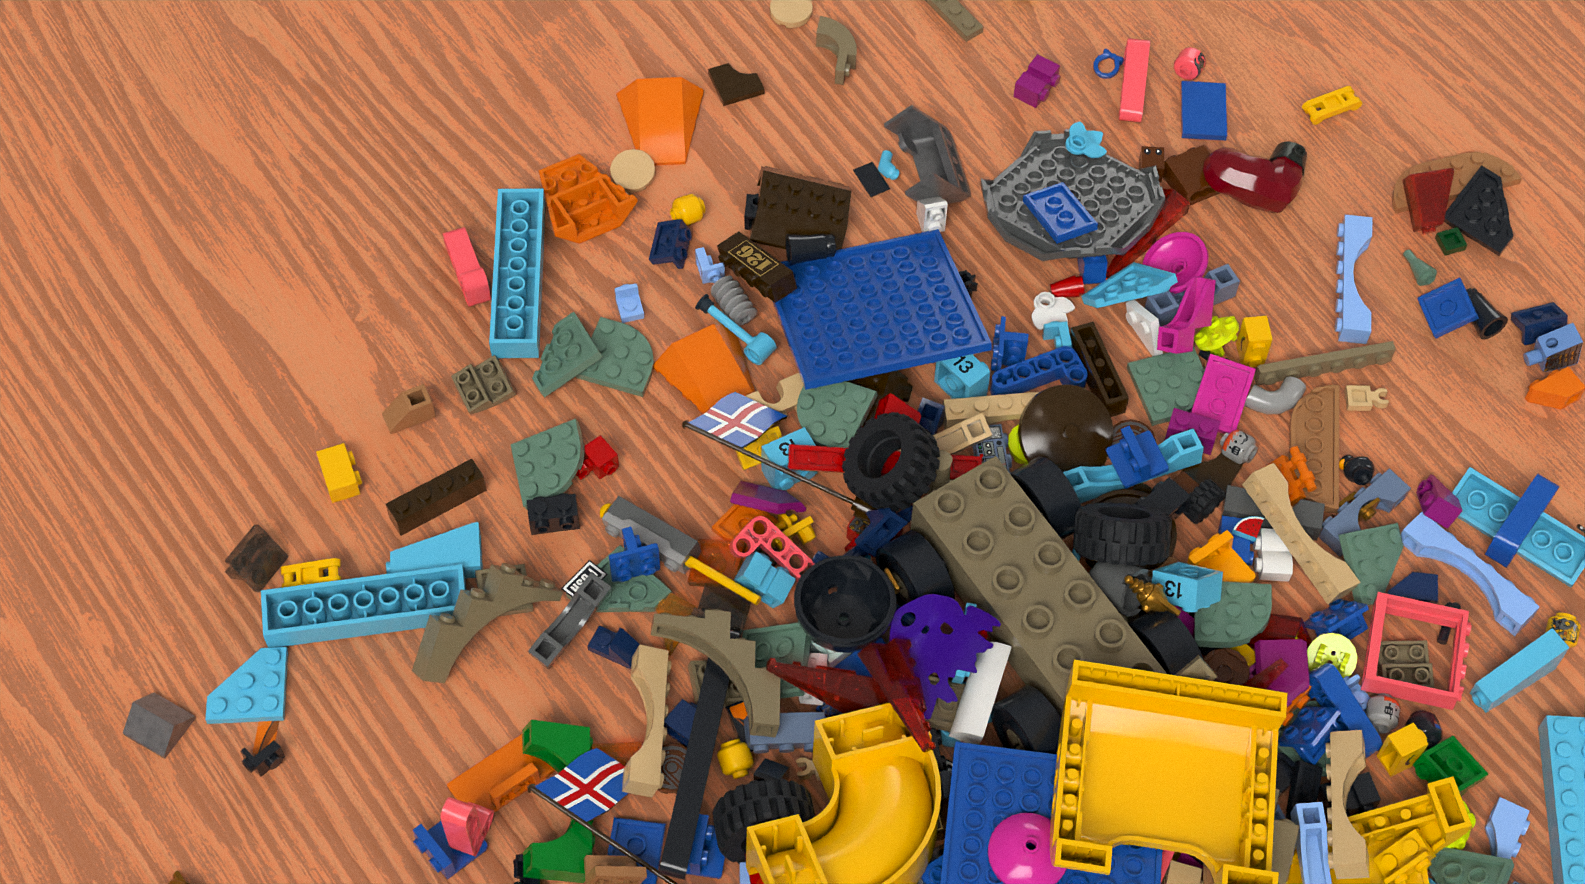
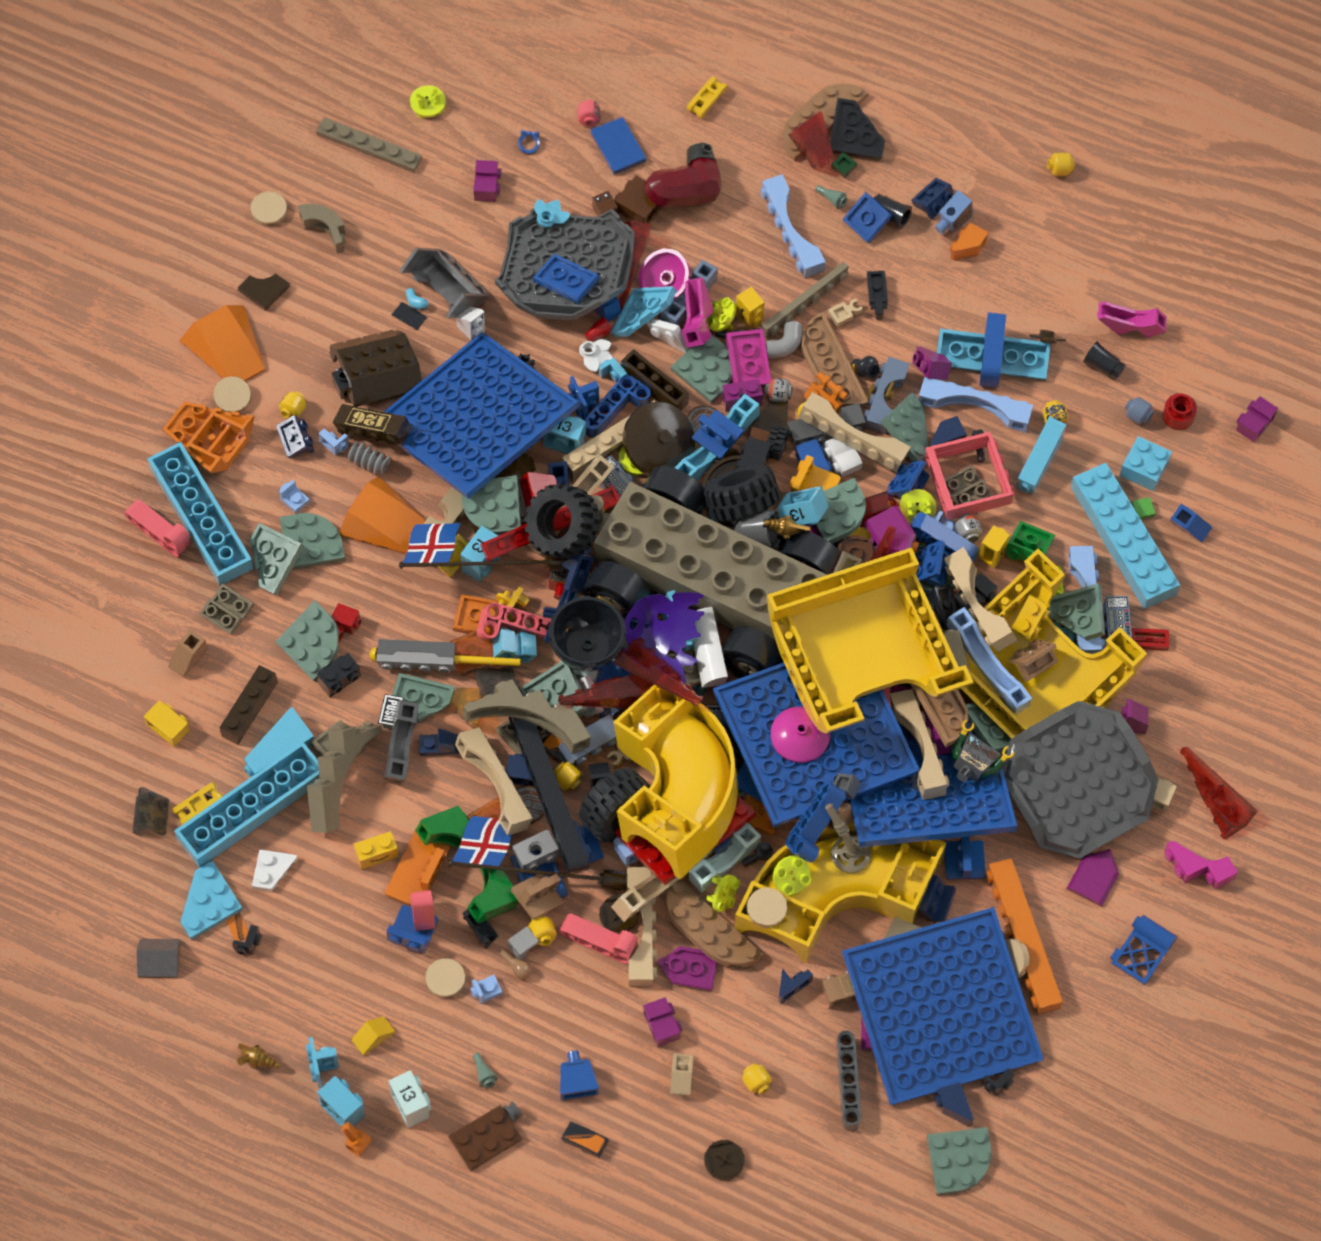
camera: 30 degrees left, 5 degrees up
(343, 690) = (271, 868): none -> white wing
(467, 730) = (376, 850): none -> yellow brick
(632, 818) = (541, 842): none -> light grey brick
(634, 559) = (419, 676): blue bracket -> none
(757, 347) = (407, 483): medium azure piece -> none
(765, 498) = (480, 589): magenta tile -> none
(809, 247) = (400, 392): black plant -> none
(1134, 80) = (551, 130): coral beam -> none
(1248, 527) = (818, 445): red tile -> none
(1415, 394) = (877, 292): none -> black hinge
(1429, 725) = (1001, 520): black head -> none

